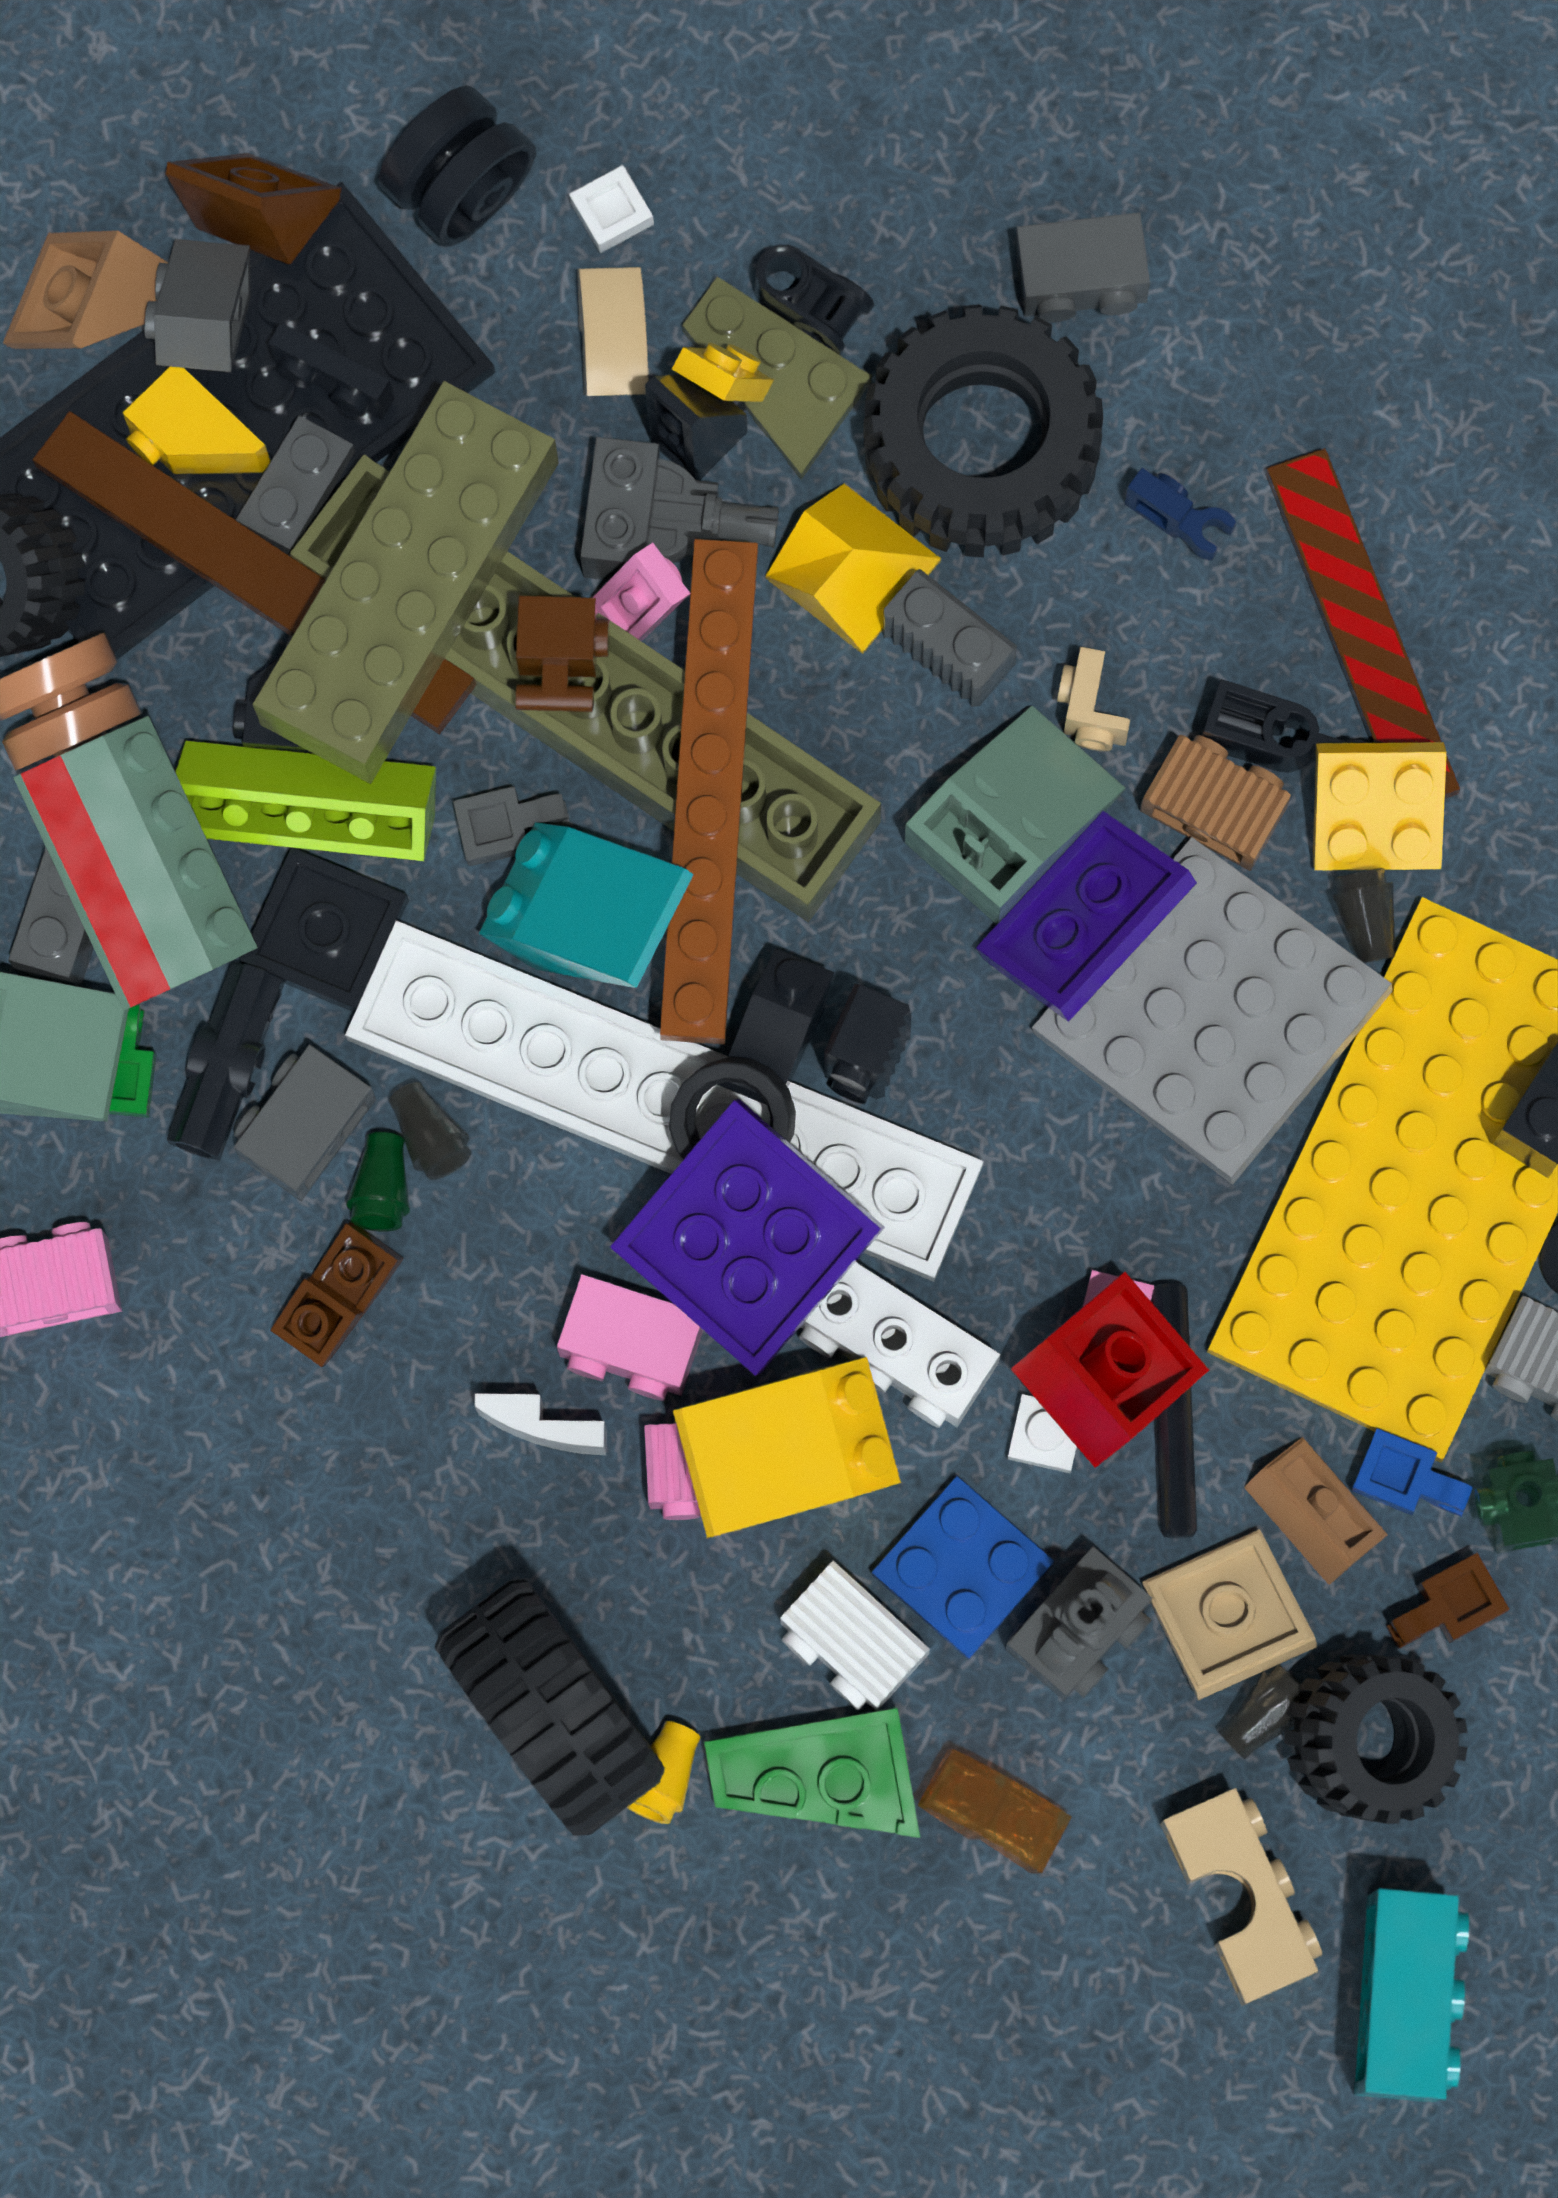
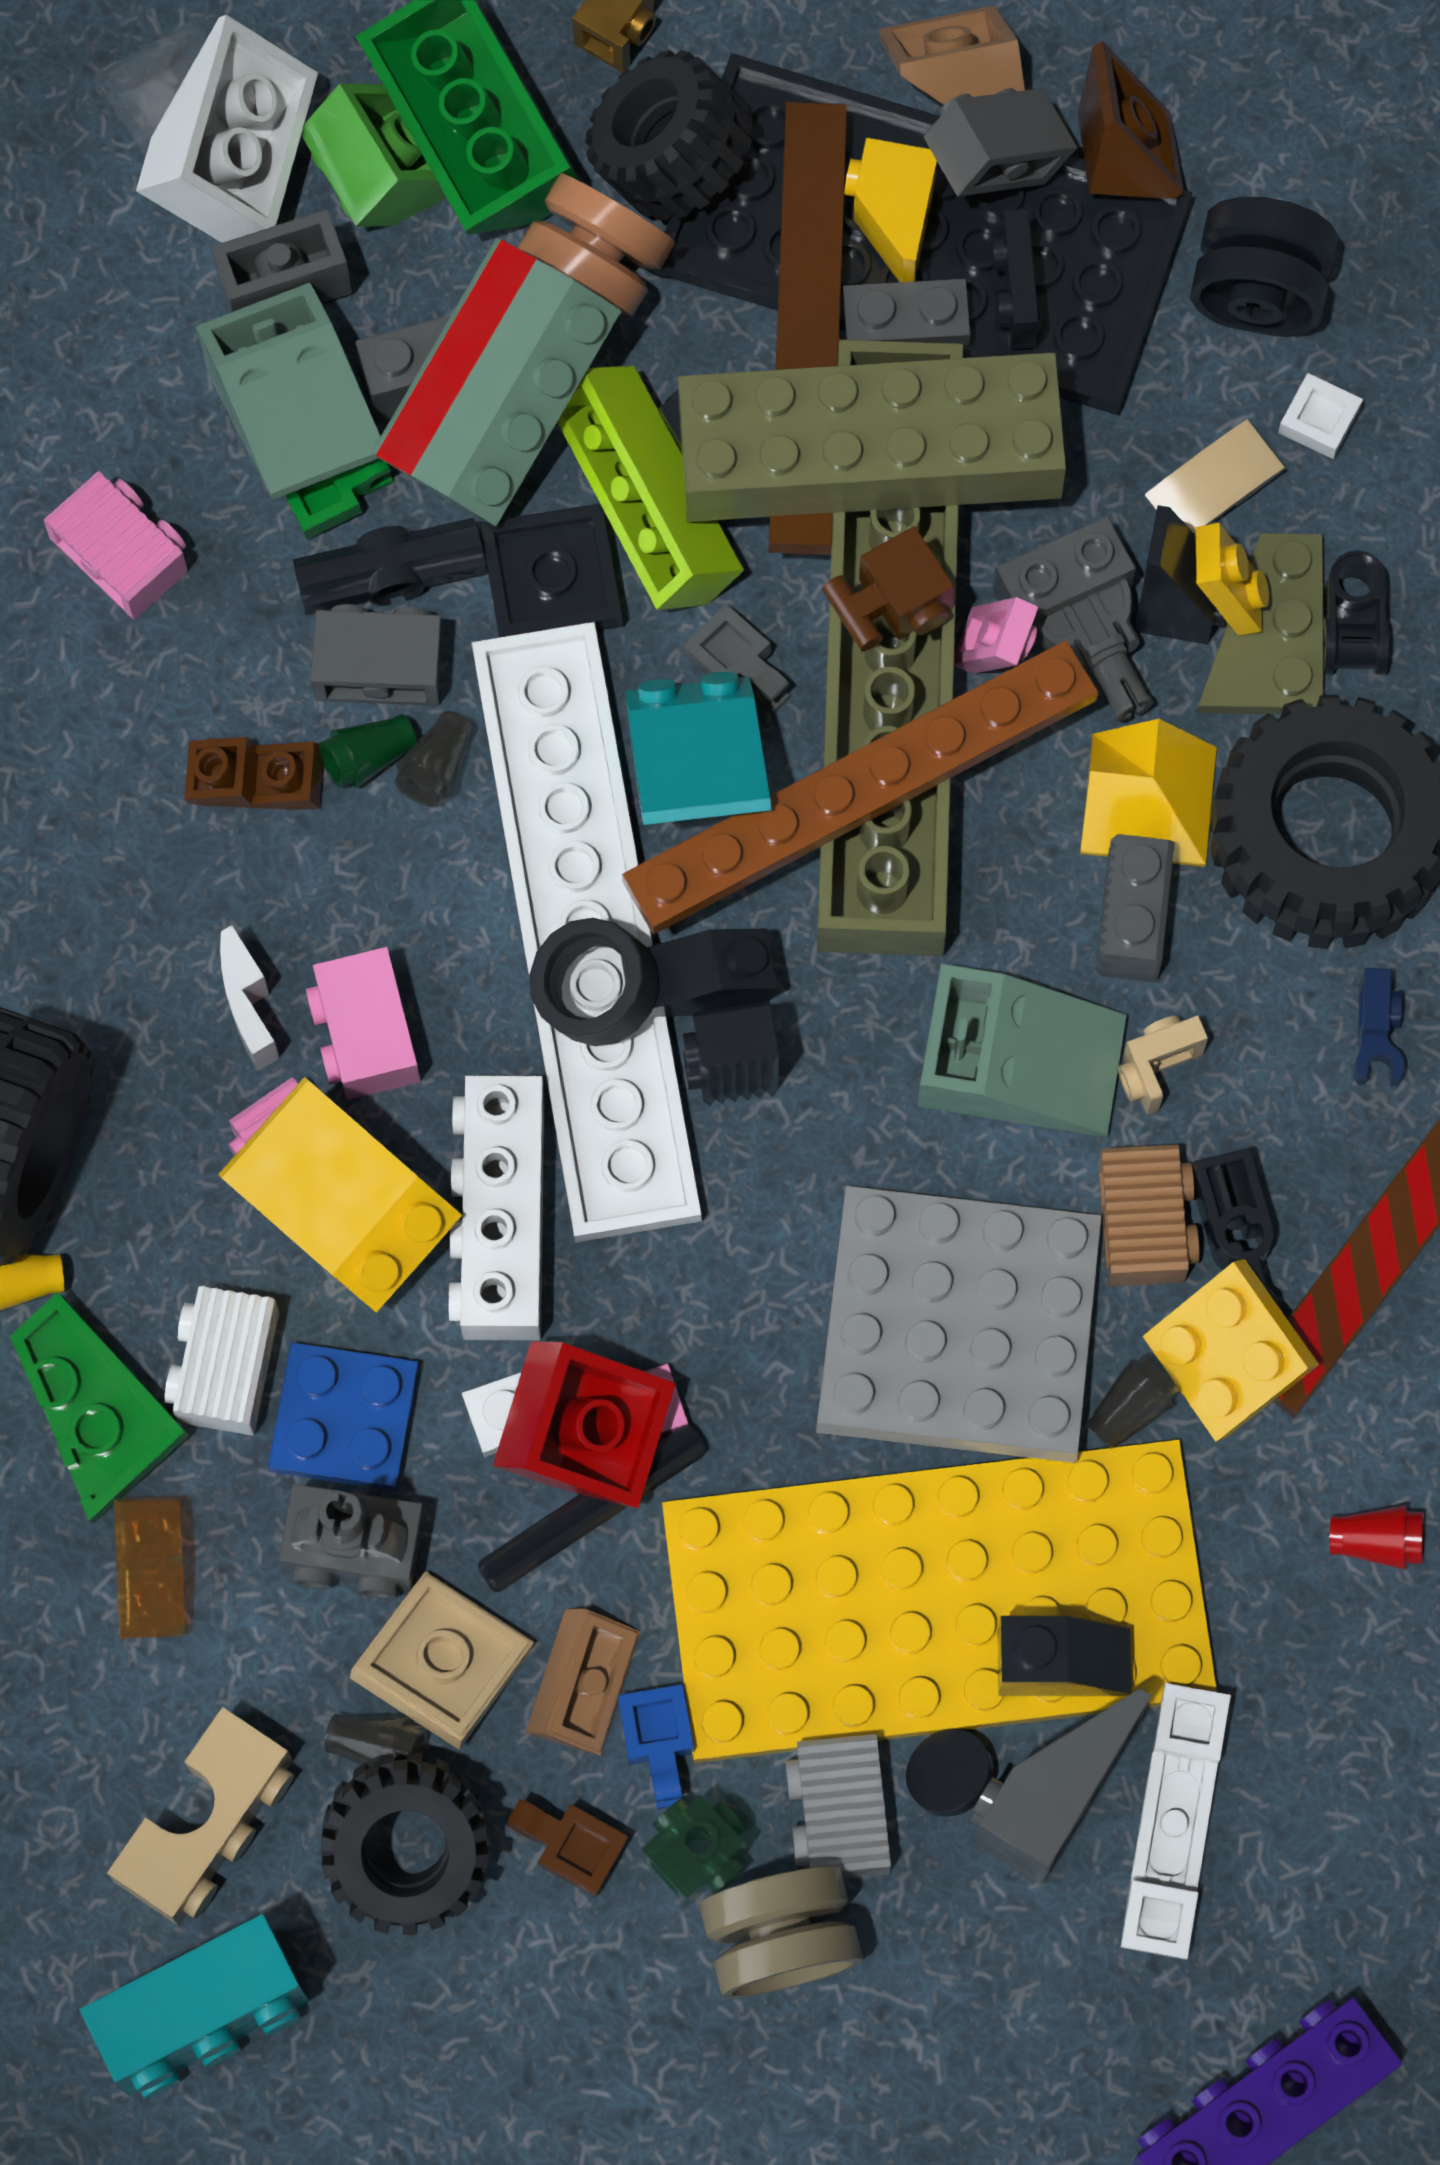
camera: 55 degrees right, 5 degrees down
(747, 1237) = (496, 1051): dark purple plate -> none
(1086, 915) = (968, 1166): dark purple plate -> none

